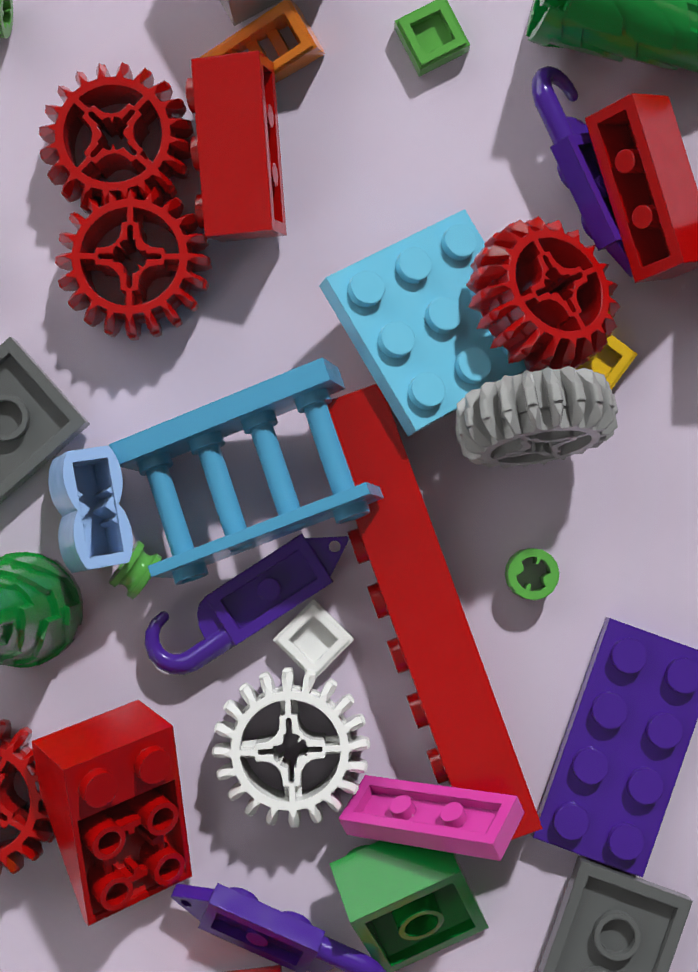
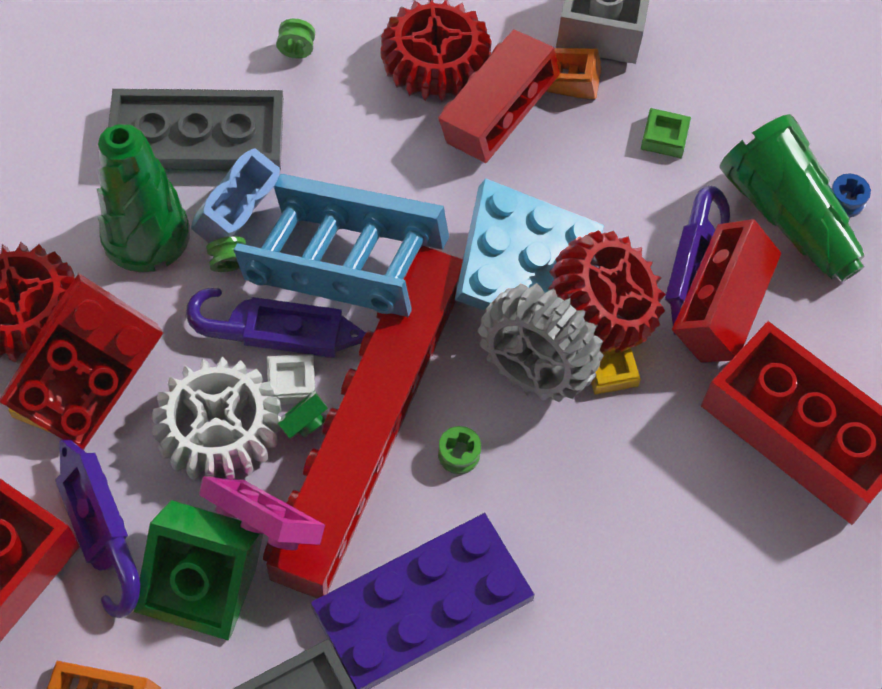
camera: 35 degrees right, 25 degrees down
(110, 261) = (387, 123): red gear -> none
(367, 675) = (304, 416): none -> green plate

